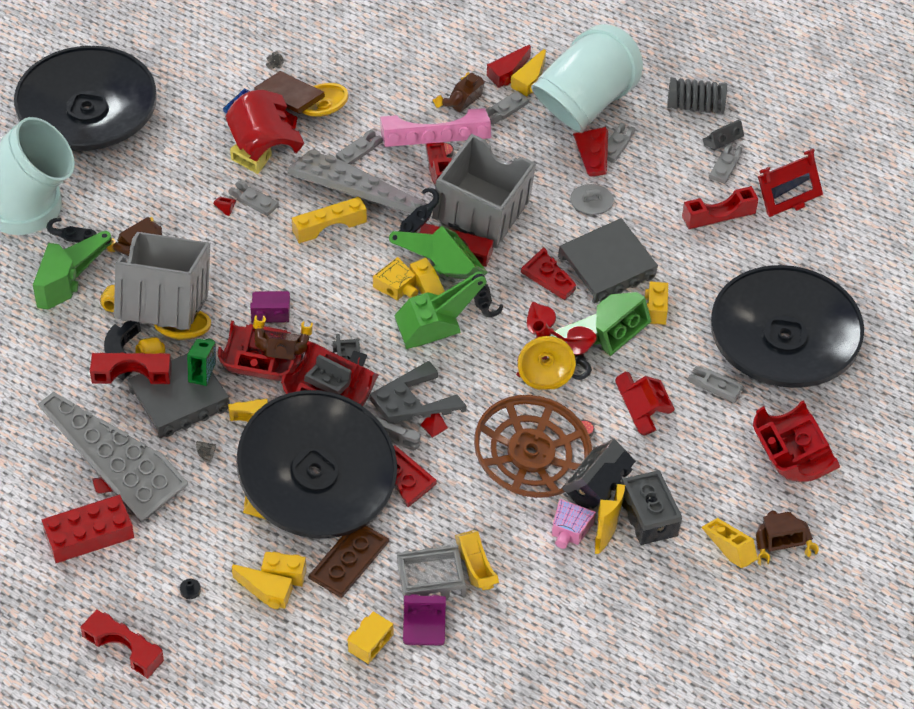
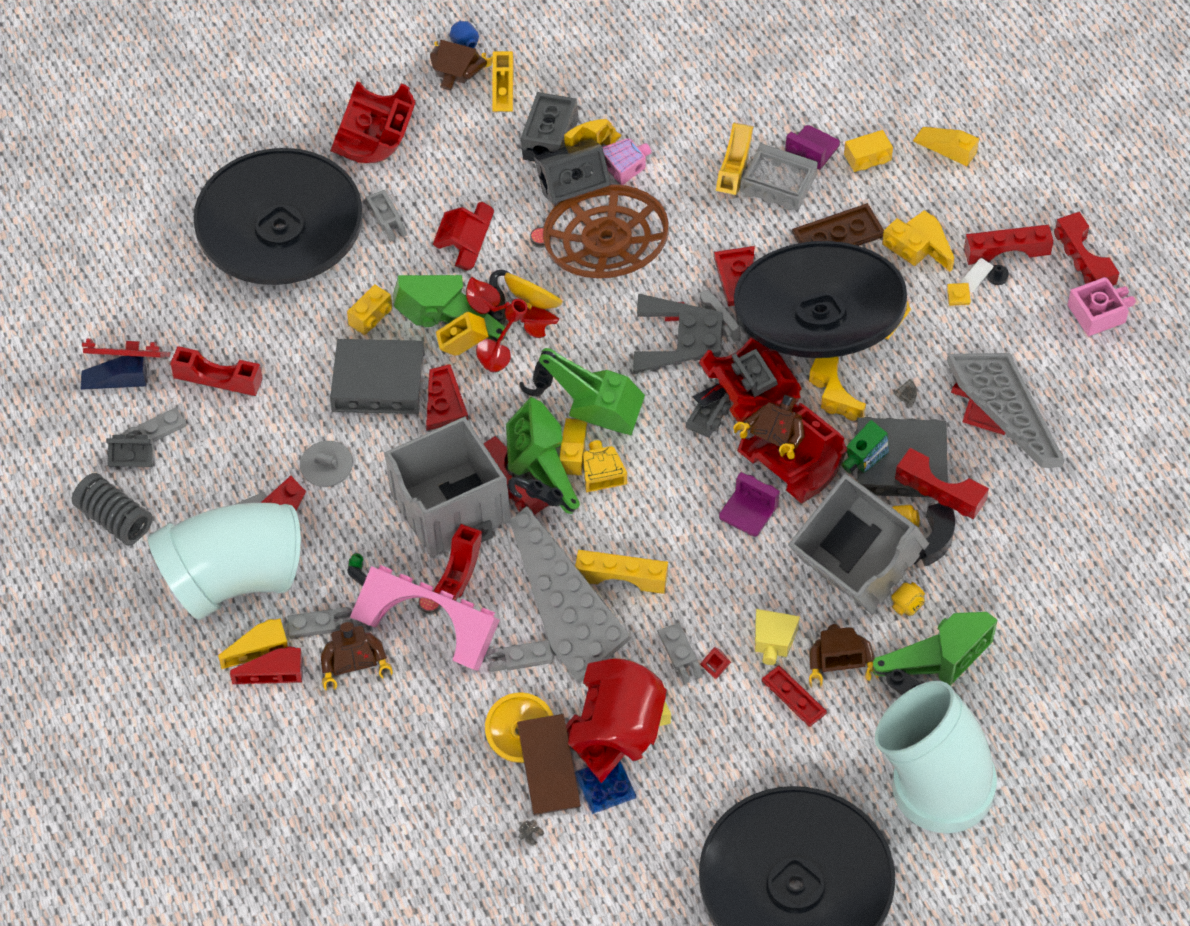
camera: 145 degrees left, 5 degrees up
(83, 592) = (1099, 305): none -> bright pink hinge
(87, 528) = (1065, 364): red brick -> none
(157, 209) = (794, 696): none -> red tile
(176, 623) = (1031, 240): none -> red arch
(196, 229) = (774, 634): none -> light yellow torso
(208, 577) = (977, 274): none -> white sticker
(213, 553) = (958, 294): none -> yellow plate
(306, 688) = (949, 143): none -> yellow slope
(512, 147) = (355, 568): none -> arm
(570, 308) = (462, 334): none -> yellow brick
(799, 564) = (464, 34): none -> blue head

